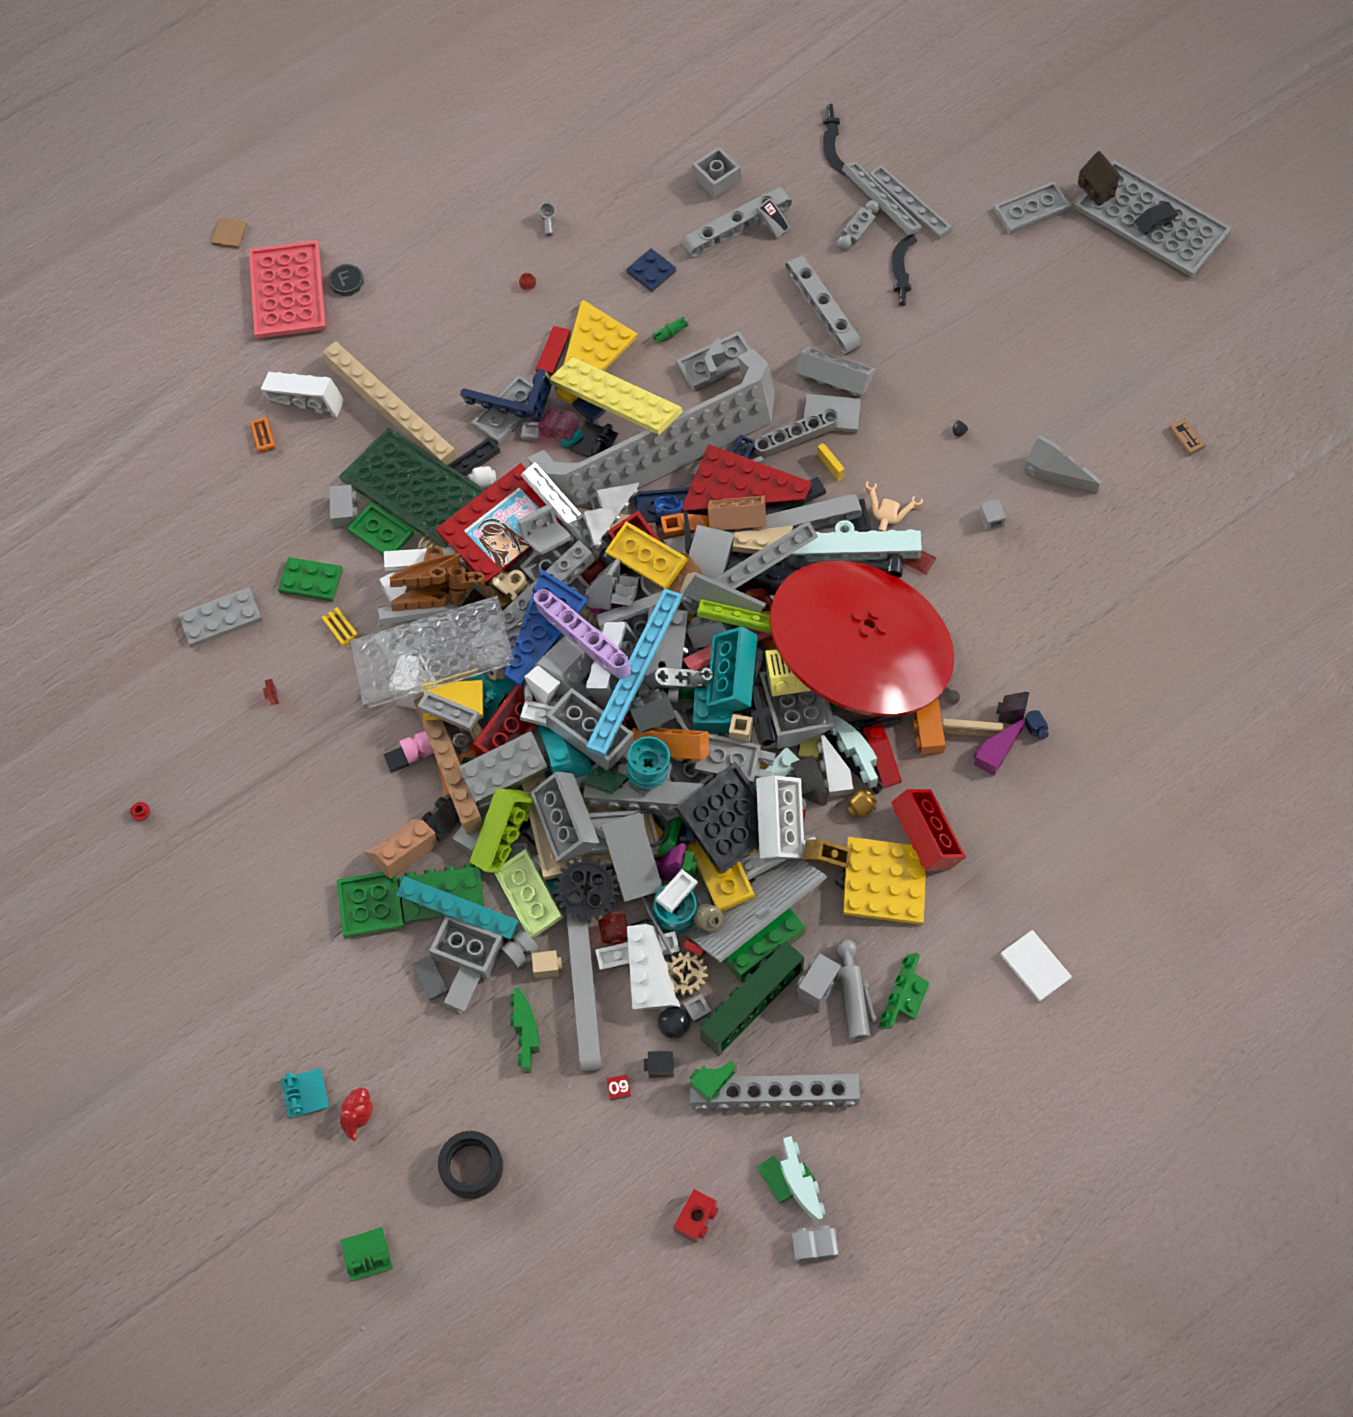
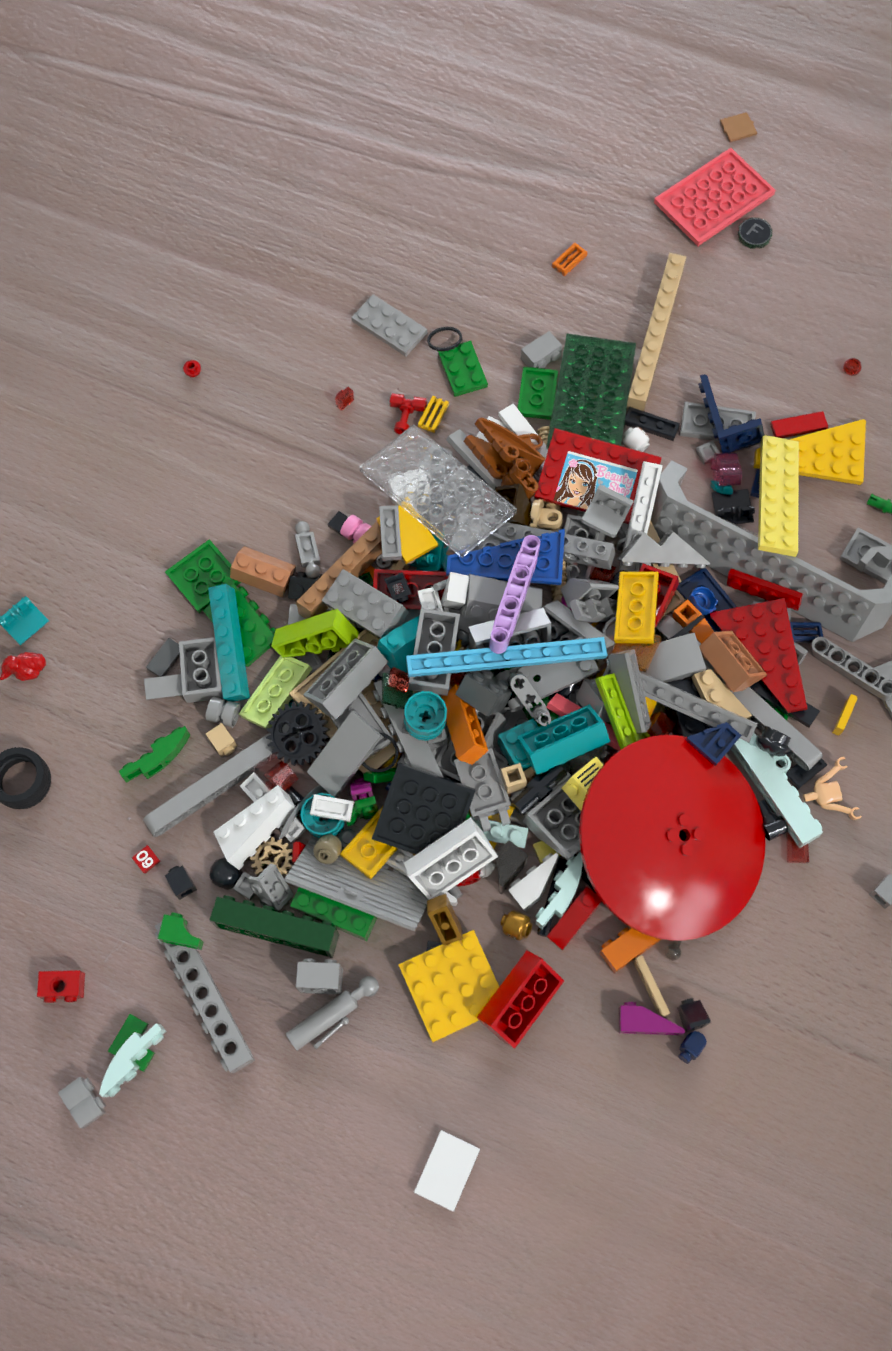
camera: 60 degrees right, 5 degrees up
(260, 570) = (443, 329): none -> black piece
(303, 392) = (625, 263): white wedge -> none
(318, 643) = (407, 407): none -> red bar
(405, 799) = (307, 549): none -> light grey plate
(505, 730) = (398, 587): none -> black window
(596, 772) = (398, 680): none -> clear red tile
(685, 457) = (763, 589): none -> red plate
(714, 985) = (271, 888): none -> light grey bracket
(804, 559) = (714, 742): none -> dark blue wing
(826, 521) = (773, 742): none -> black piece
(906, 994) = (354, 1063): green bracket -> none

